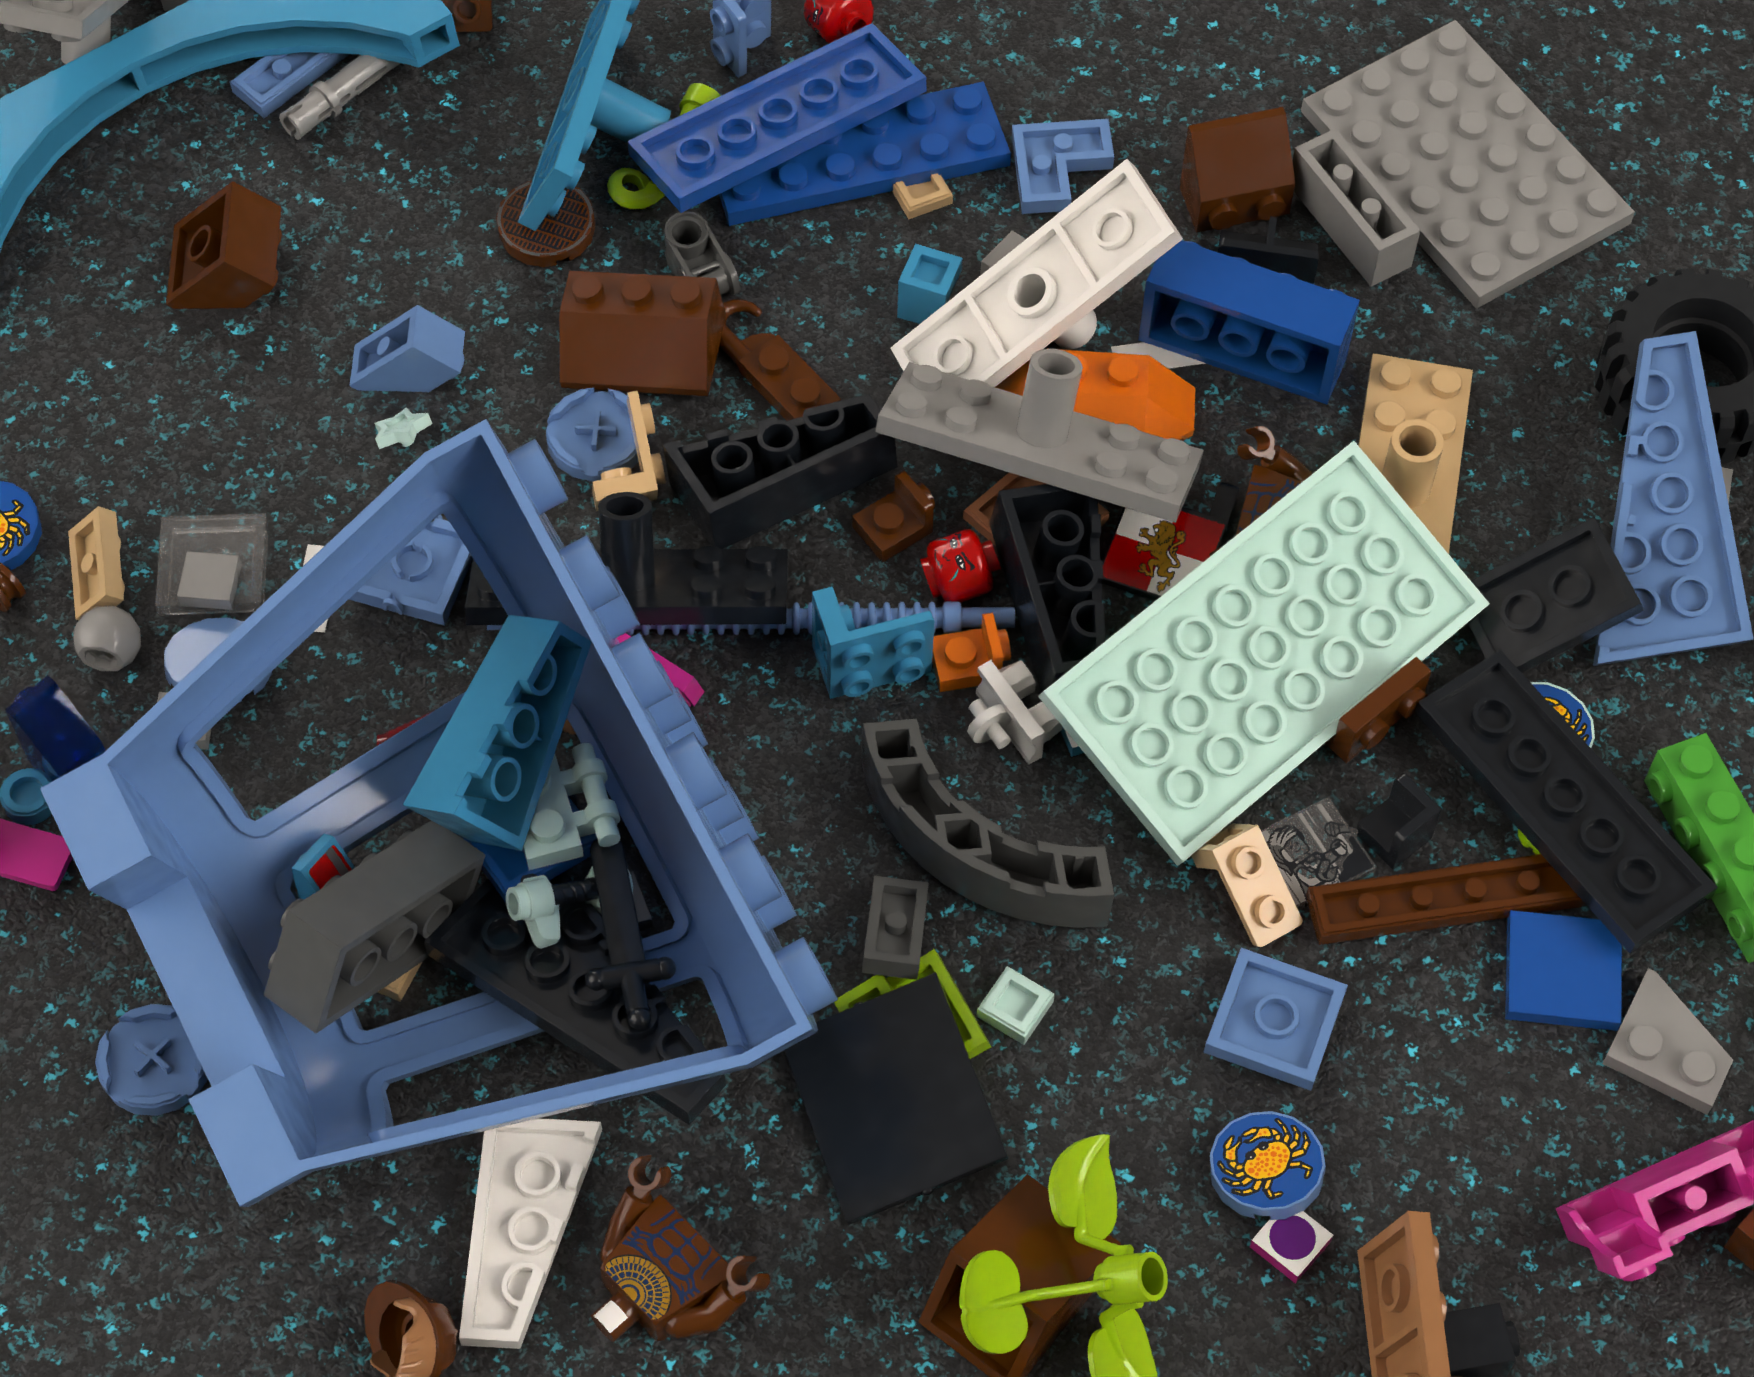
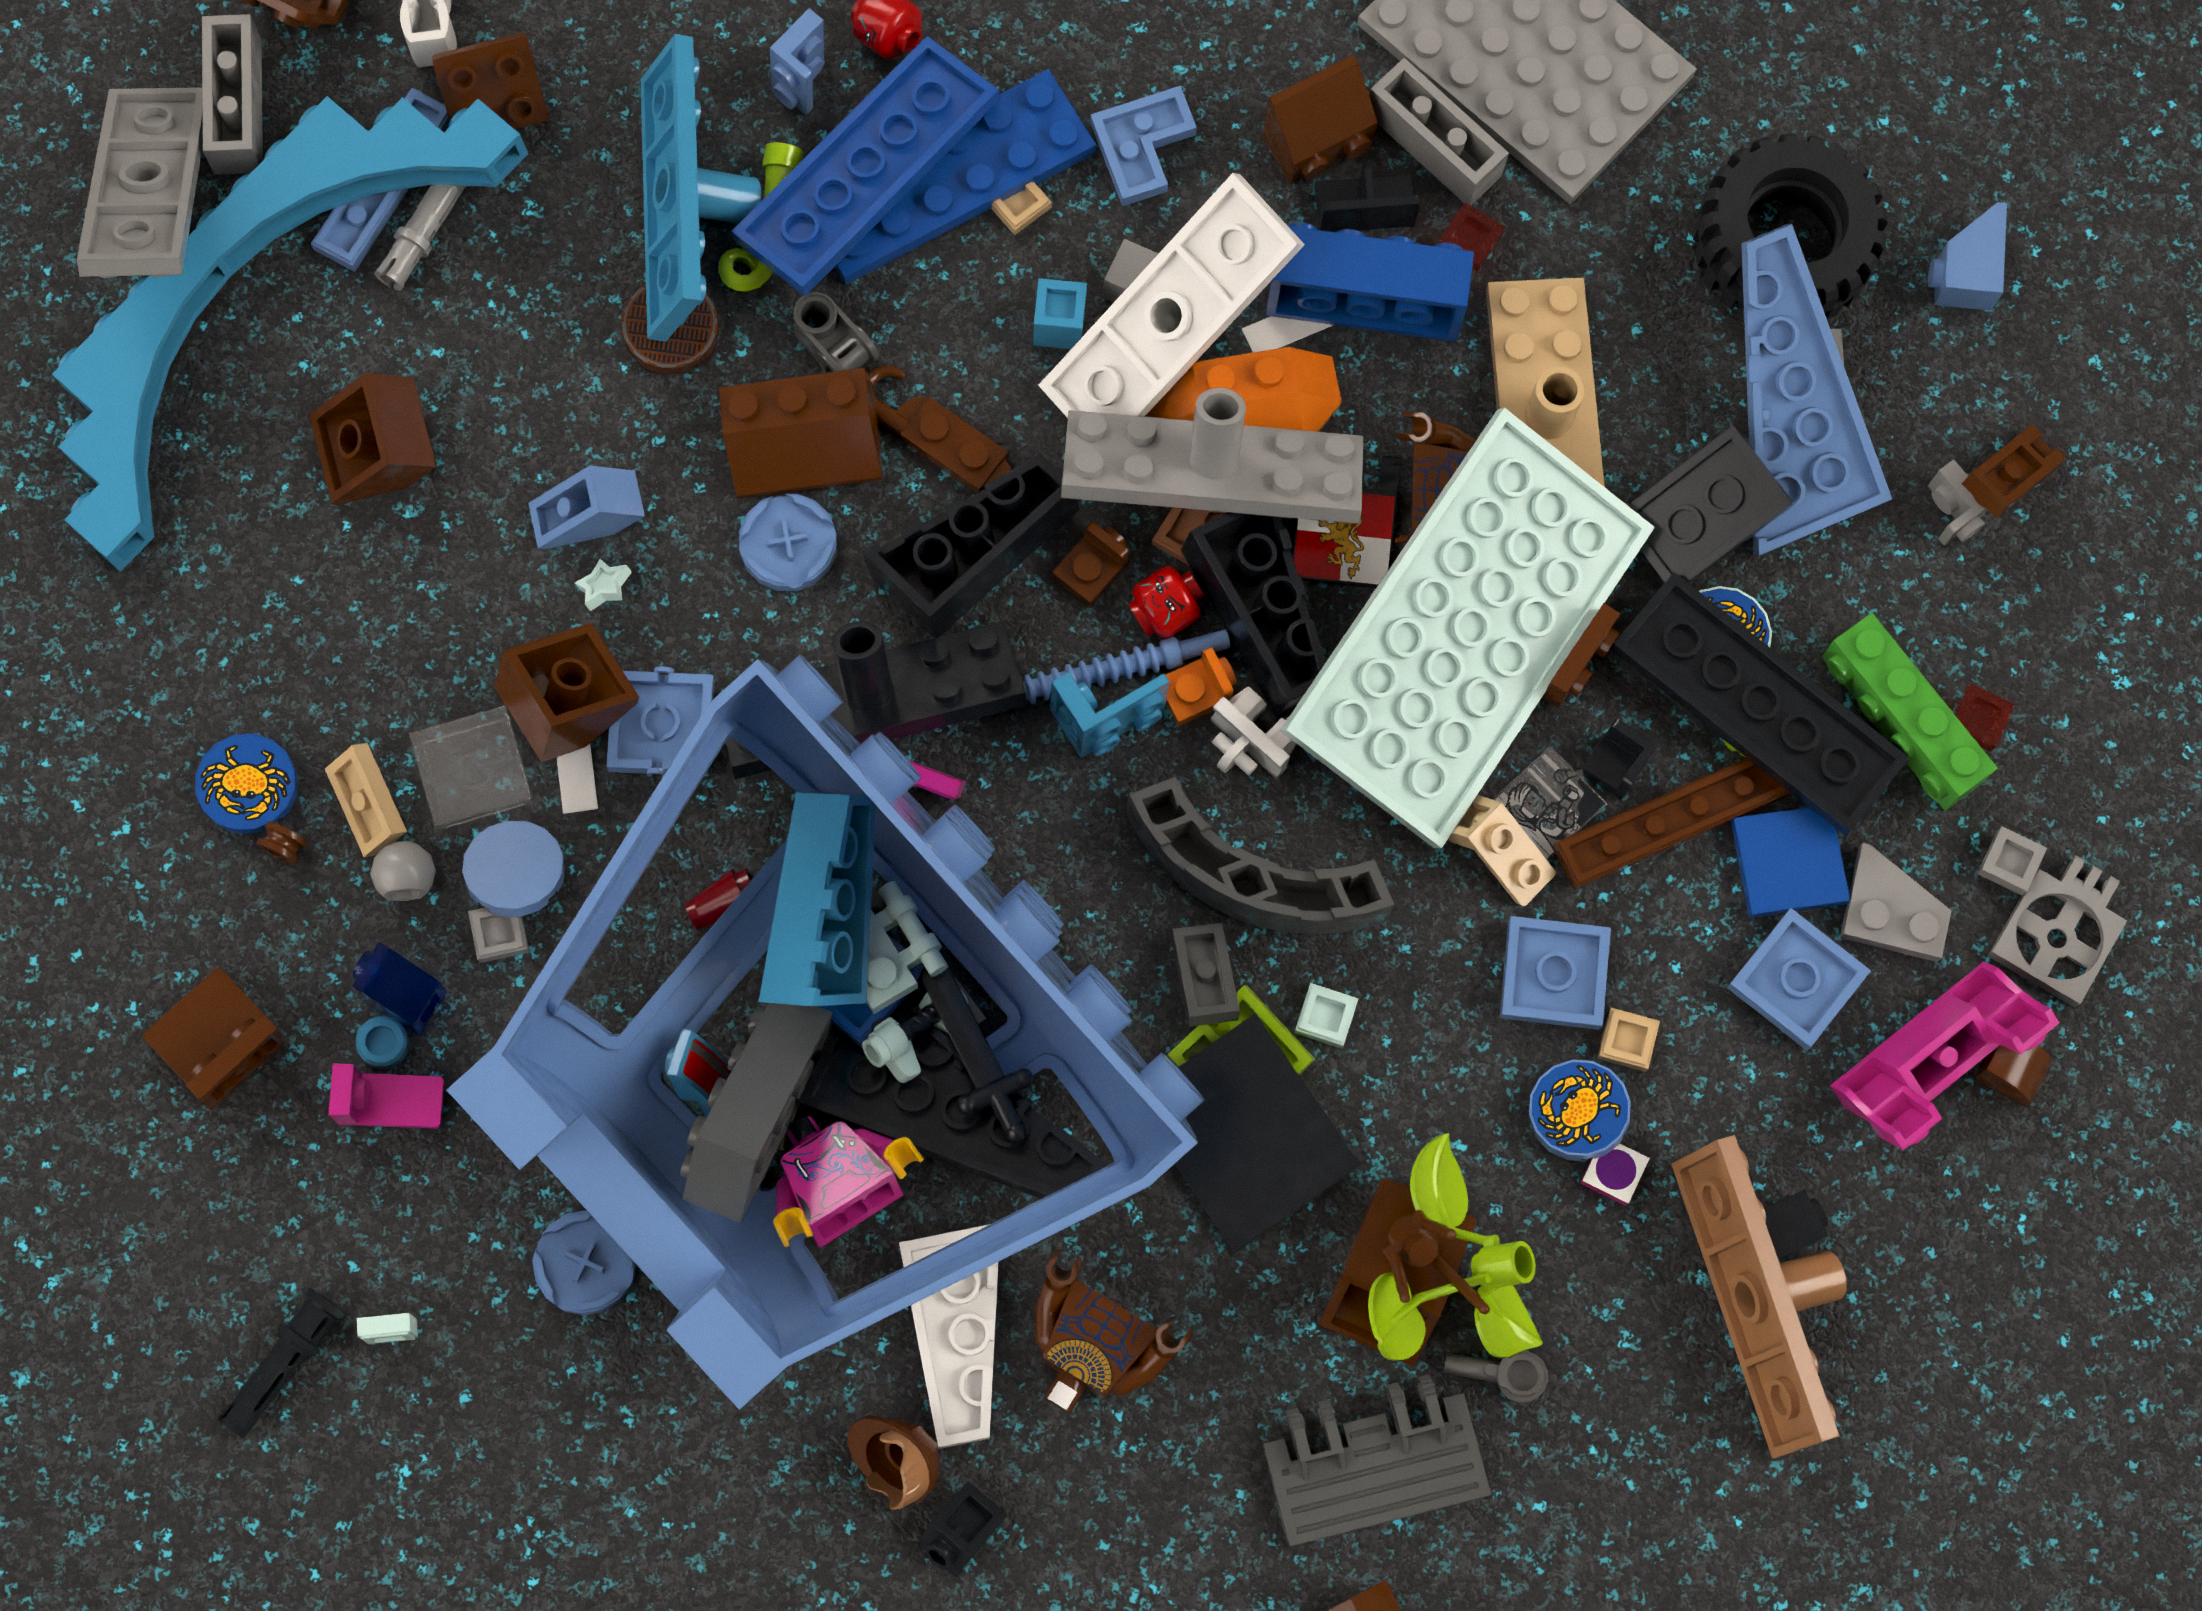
camera: 20 degrees left, 15 degrees up
(209, 580) = (479, 790): light grey tile -> none
(314, 497) = (564, 690): none -> reddish brown slope
(436, 1025) = (836, 1179): none -> dark pink torso
(650, 464) = (831, 596): tan bracket -> none
(1040, 1237) = (1416, 1243): none -> reddish brown plant
(1340, 1109) = (1628, 1039): none -> tan tile
(1375, 310) = (1473, 233): none -> clear red plate
(1545, 1089) = (1798, 979): none -> medium blue plate

